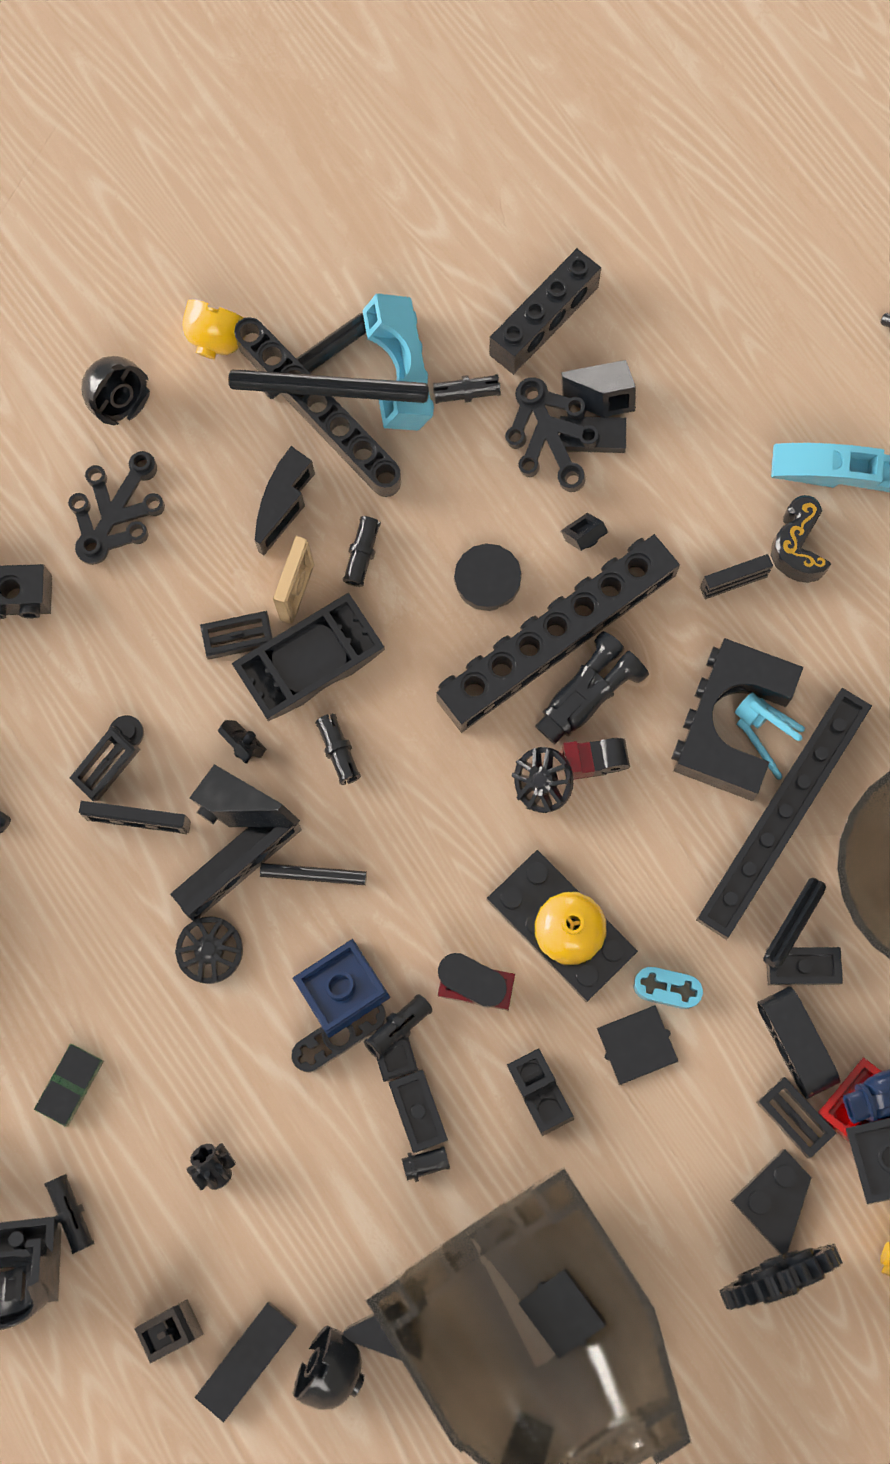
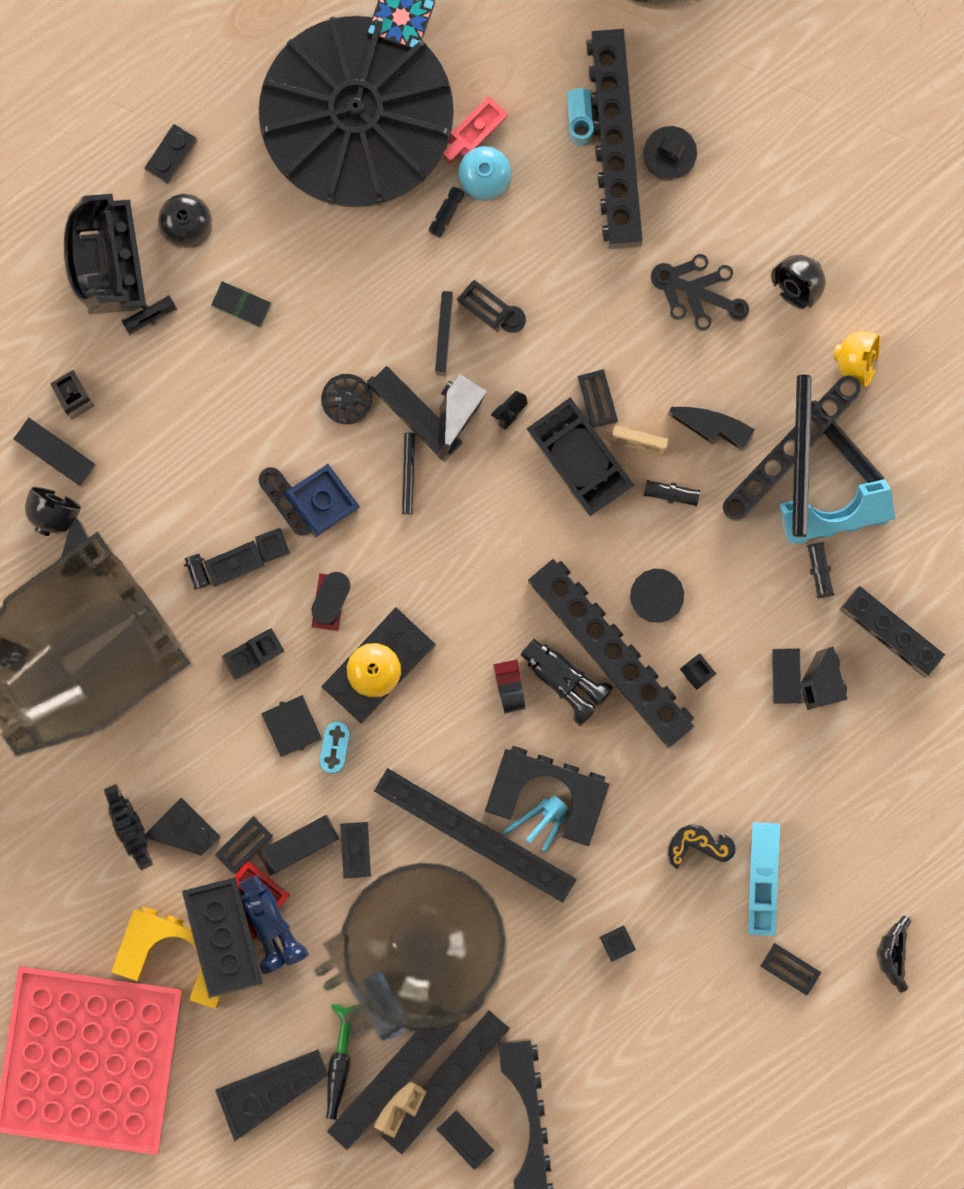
camera: 85 degrees right, 10 degrees up
(211, 1166) = (187, 414): black gear -> none
(338, 749) = (507, 485): black pin -> none
(398, 1026) = (295, 545): black pin -> none
(543, 780) = (489, 645): black wheel -> none
(548, 429) = (784, 638): black plant -> none
(562, 1313) = (97, 674): black piece -> none
(736, 576) = (665, 794): black tile -> none
(794, 923) = (386, 841): black axle -> none

